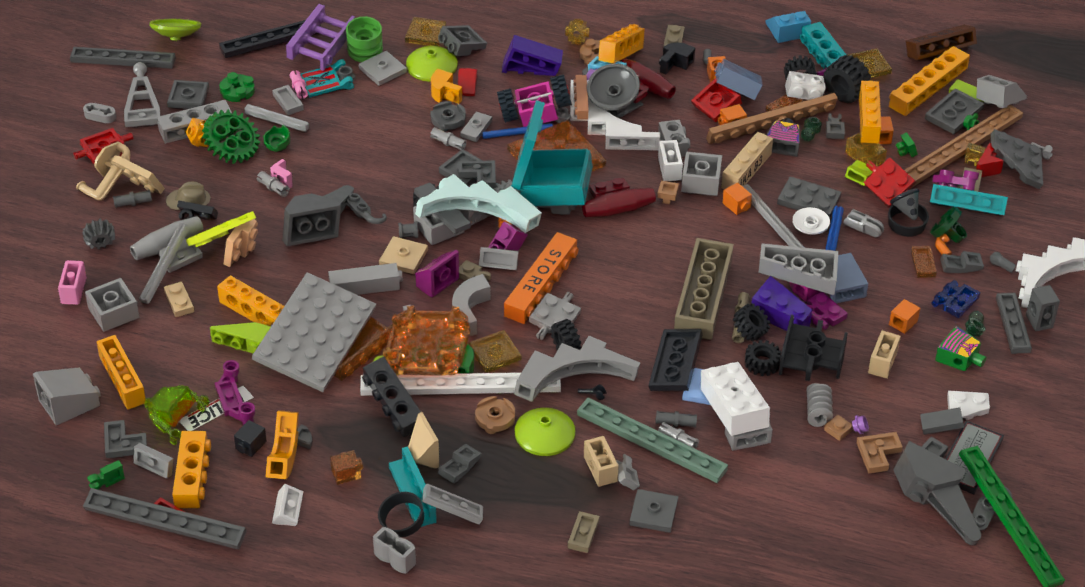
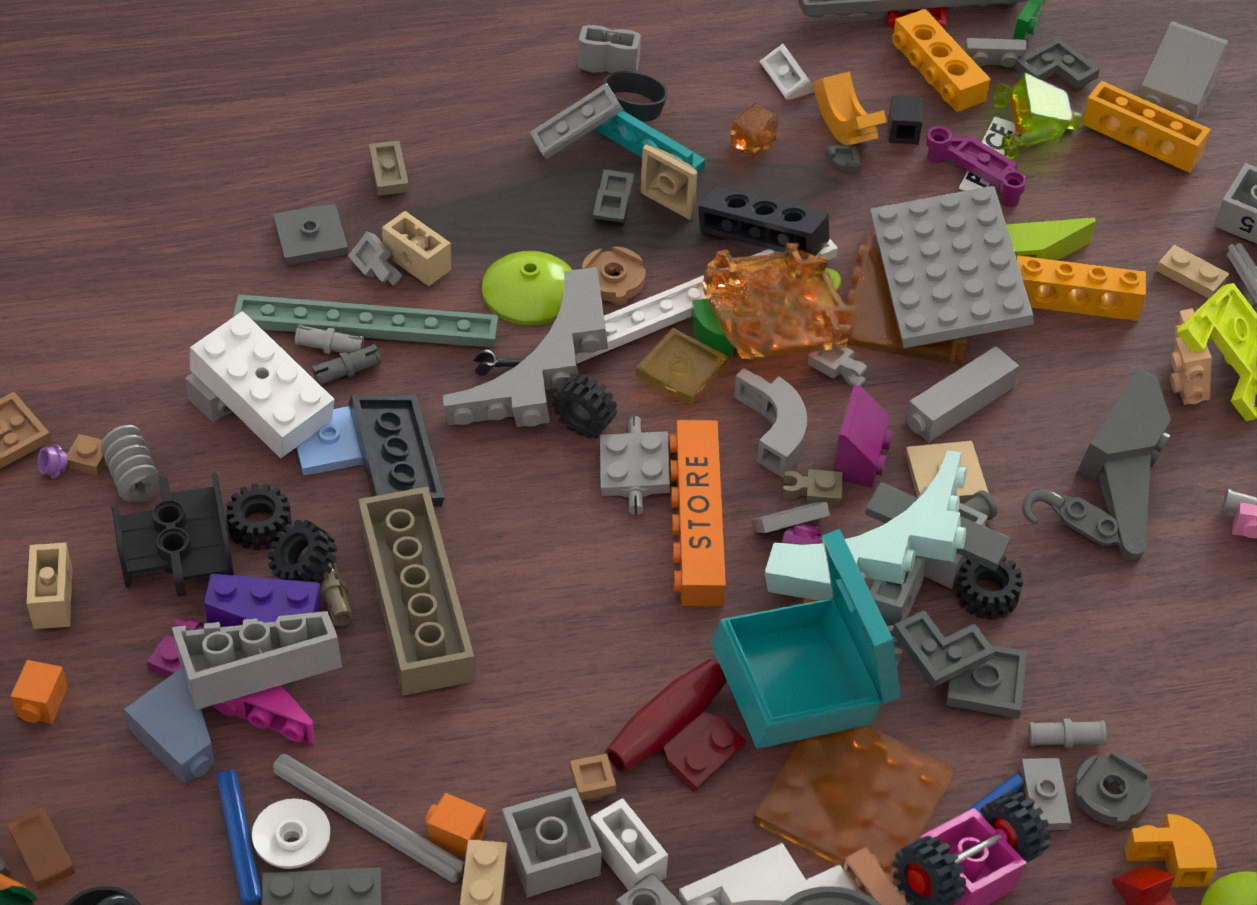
camera: 150 degrees right, 5 degrees up
(864, 223) = (184, 876): light grey arm -> none

